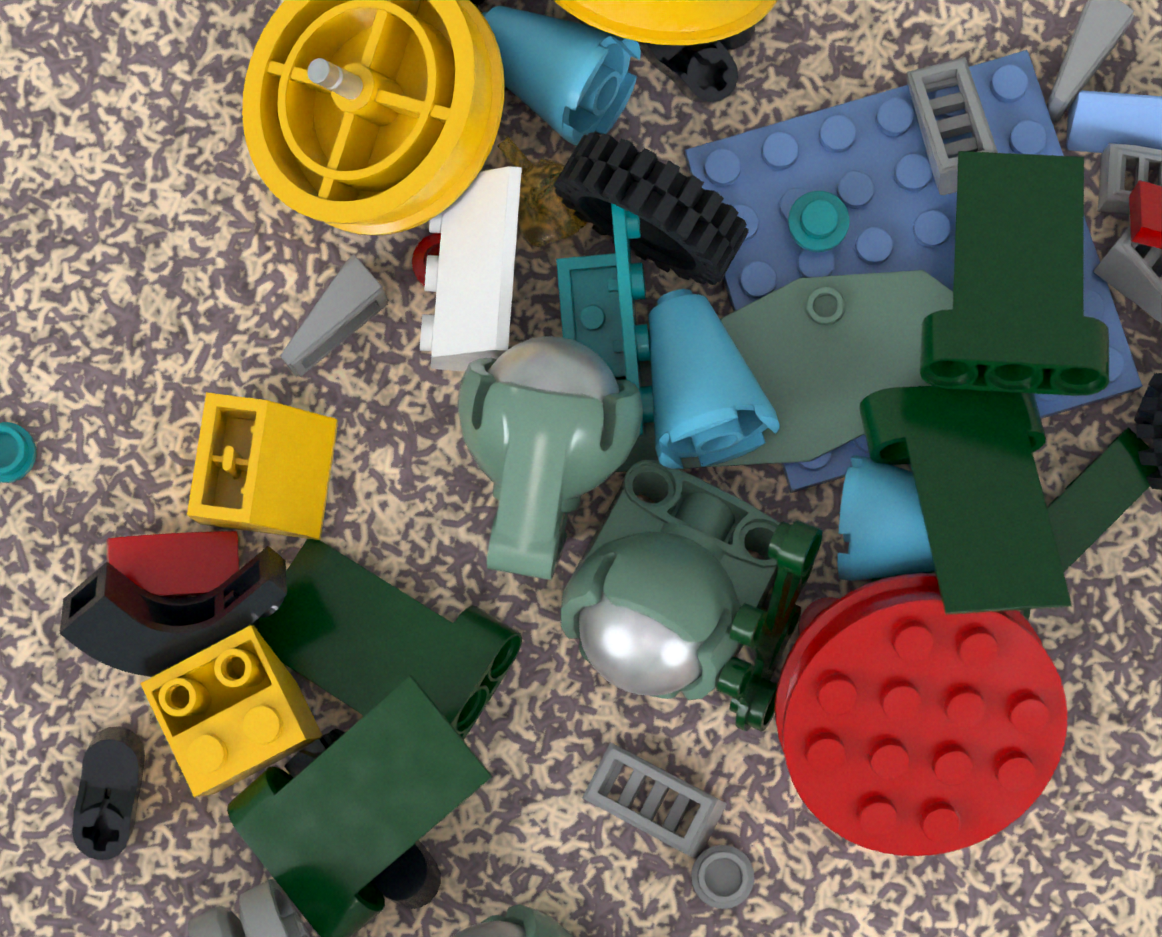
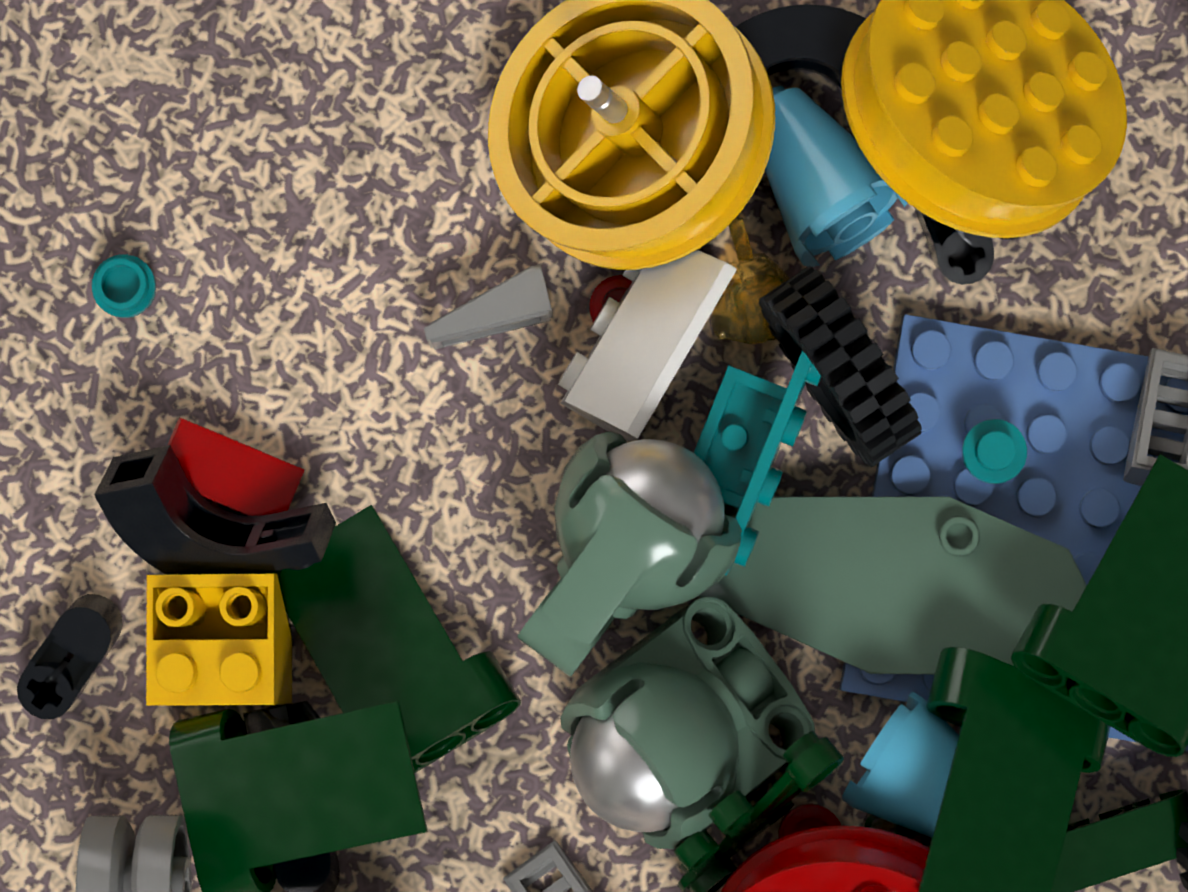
camera: 20 degrees right, 5 degrees up
(262, 467) = (357, 424): yellow slope -> none
(702, 386) = (804, 555): medium azure cone -> none

